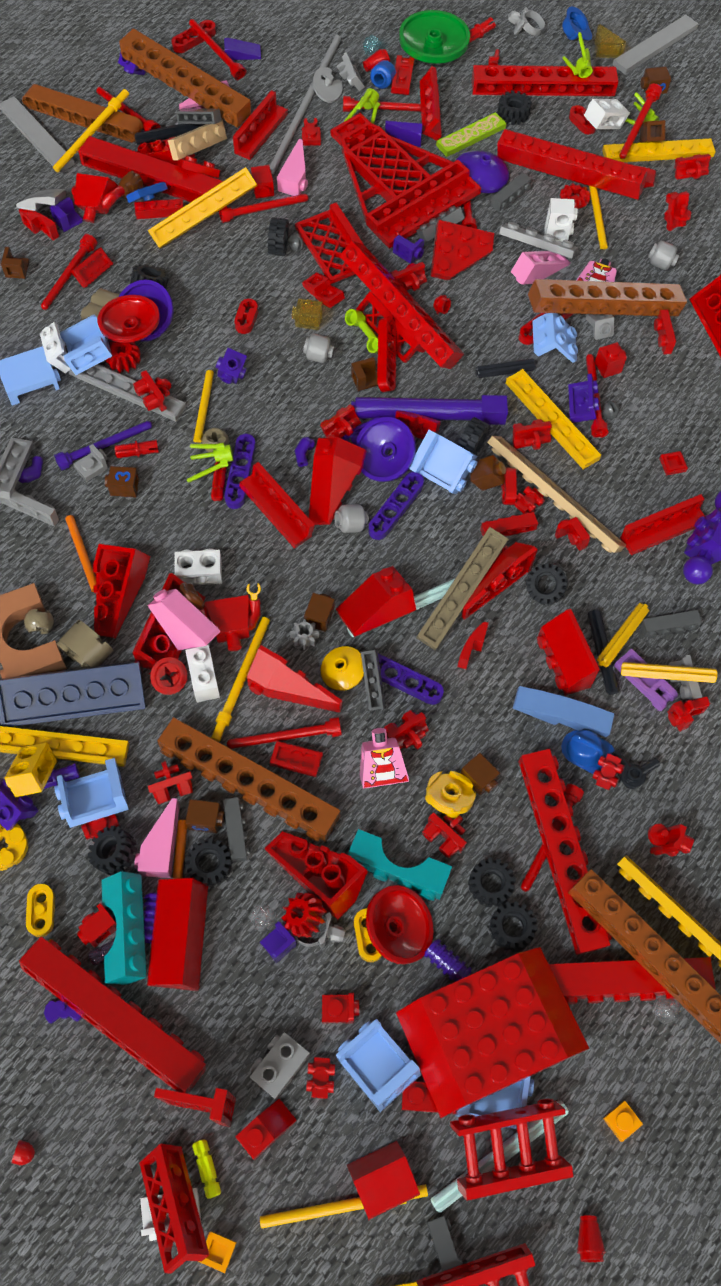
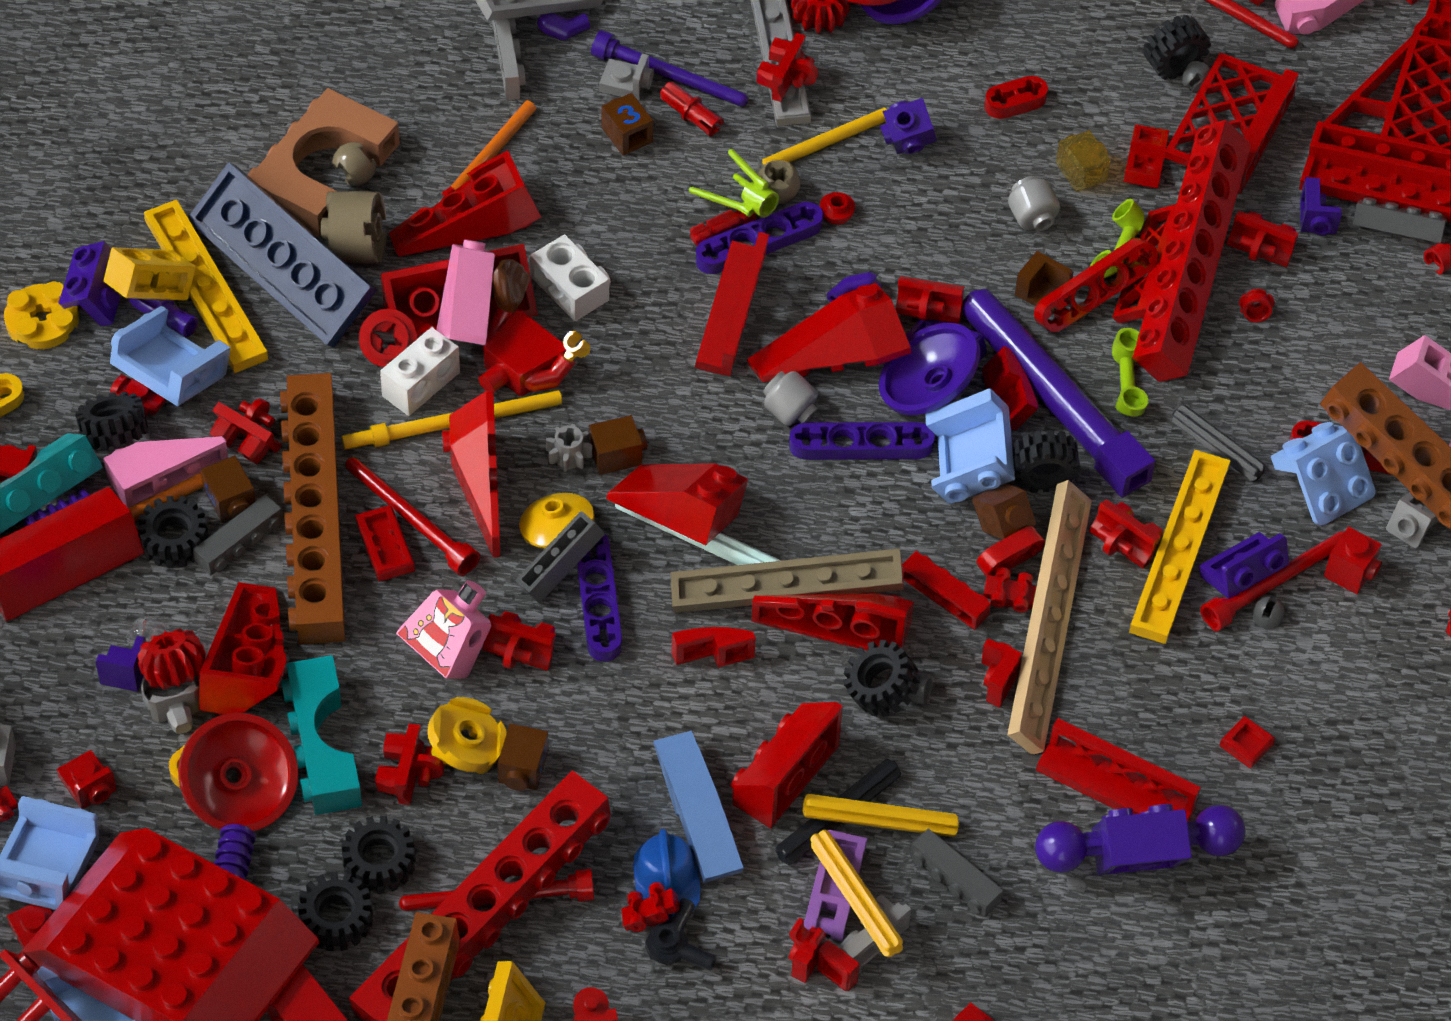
camera: 55 degrees right, 10 degrees down
(250, 430) = (834, 214): none -> red plate
(458, 248) = (1376, 267): red plate -> none
(458, 385) = (1131, 400): none -> lime bar

